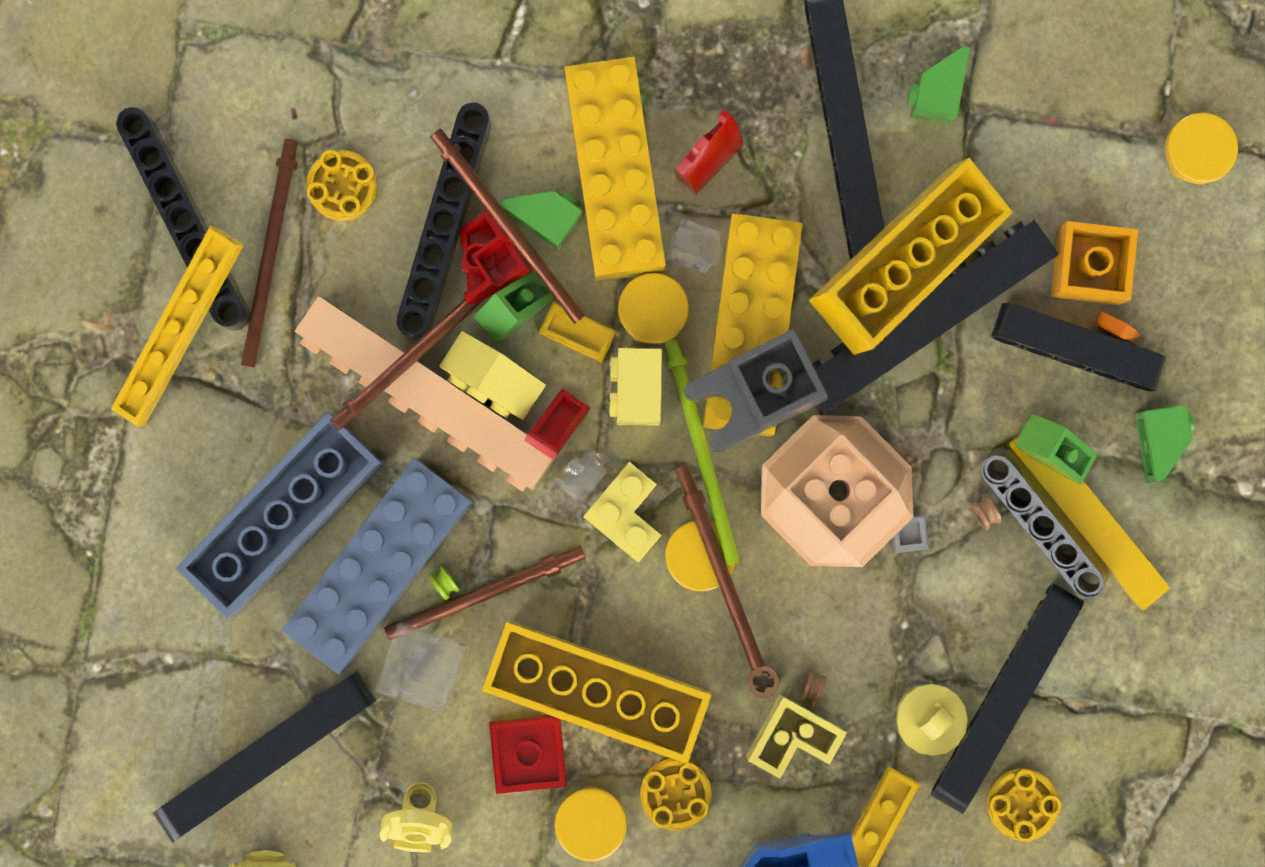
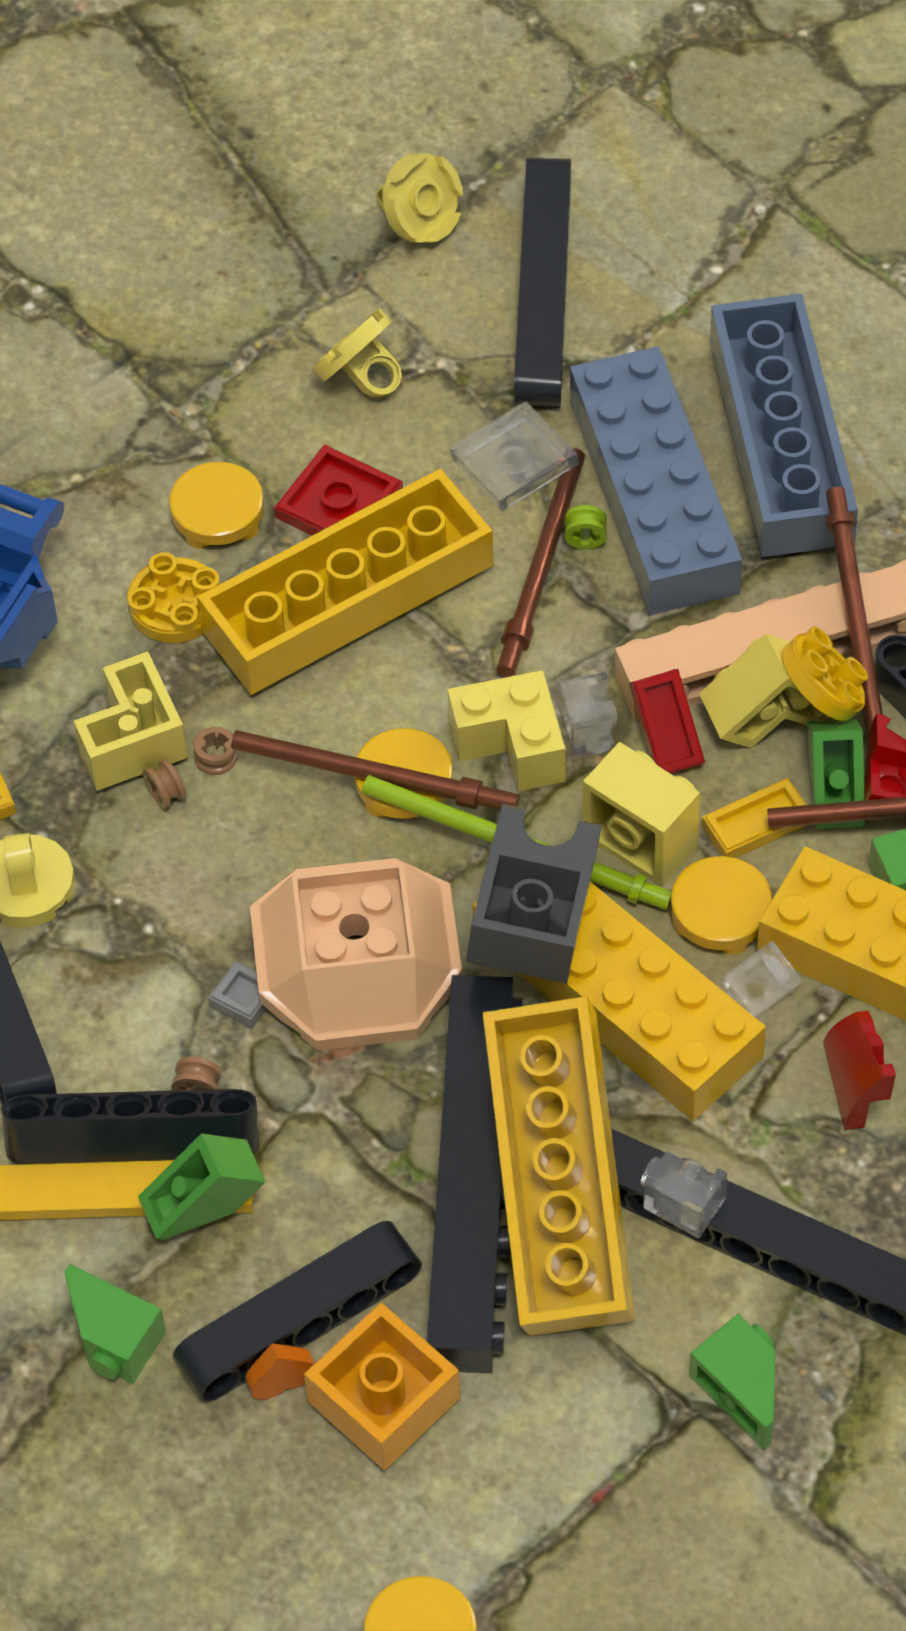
camera: 135 degrees right, 30 degrees down
(471, 342) = (825, 675): none -> yellow tile
(873, 180) = (683, 1192): none -> clear brick

